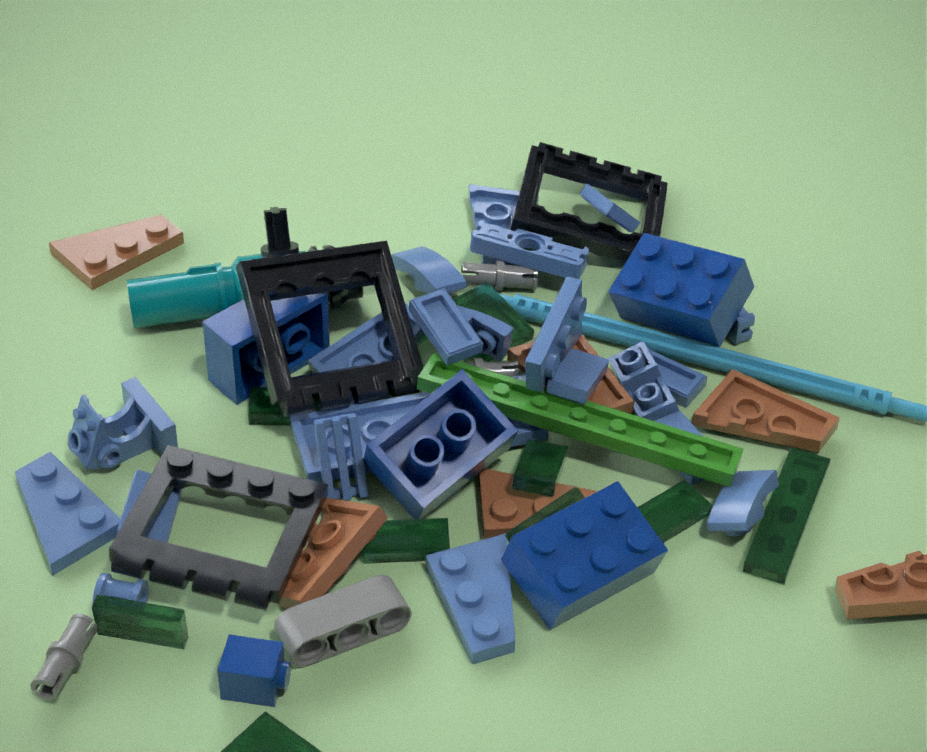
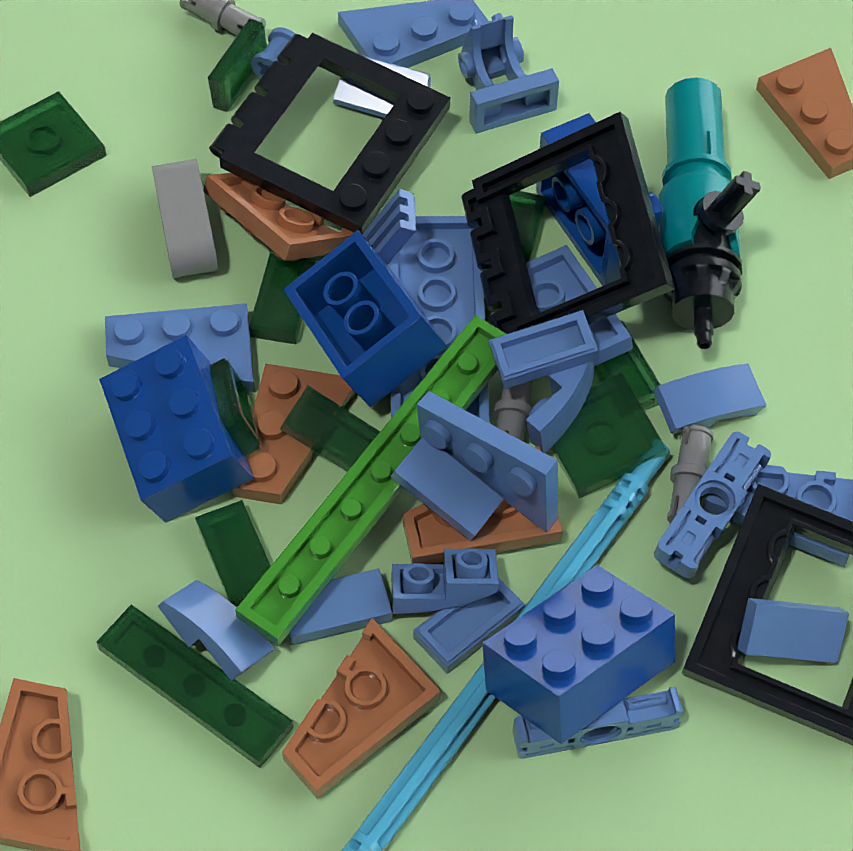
camera: 105 degrees right, 15 degrees up
(253, 670) = (148, 136): blue brick -> none

